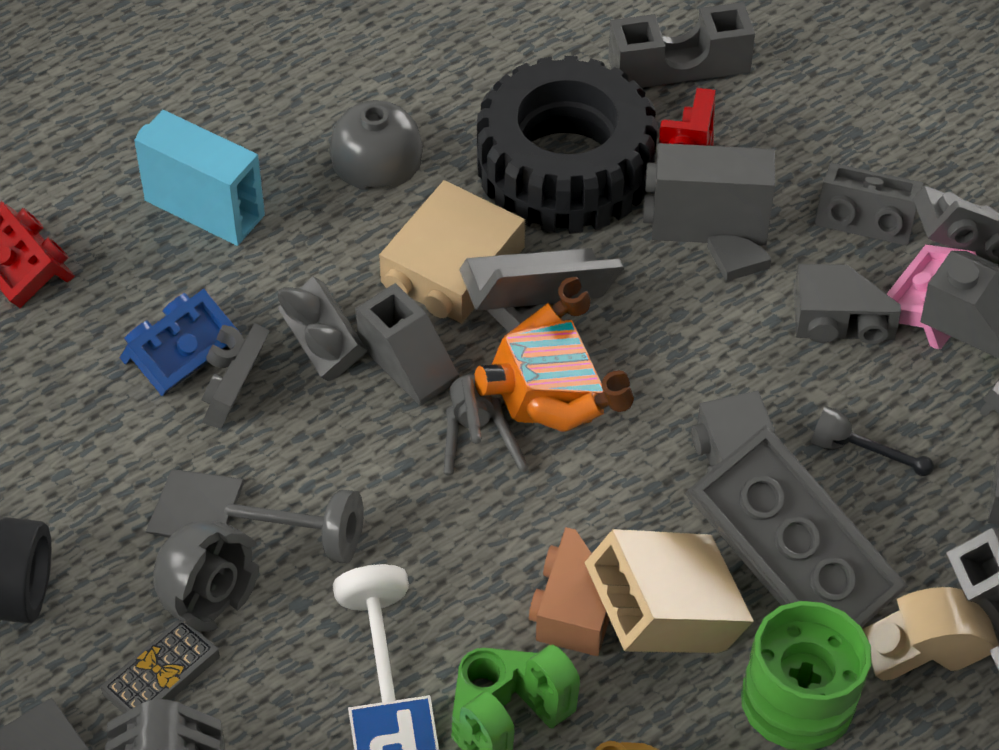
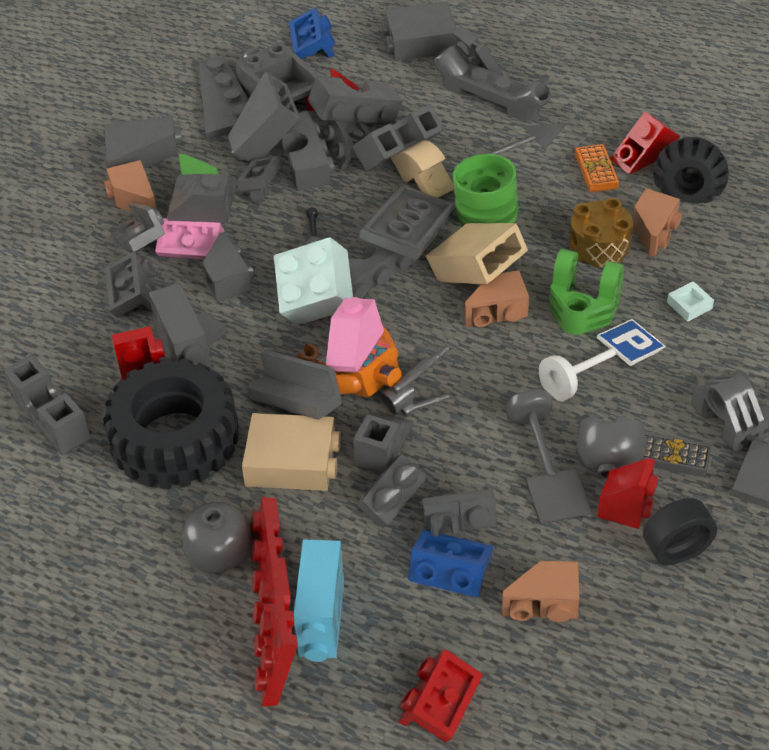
camera: 115 degrees left, 5 degrees down
(57, 408) = (545, 592): none -> nougat slope
(115, 551) = (629, 493): none -> red slope
(144, 94) = (275, 642): none -> red wing
(569, 347) = (353, 334): none -> bright pink slope
(718, 359) = (312, 280): none -> light aqua brick

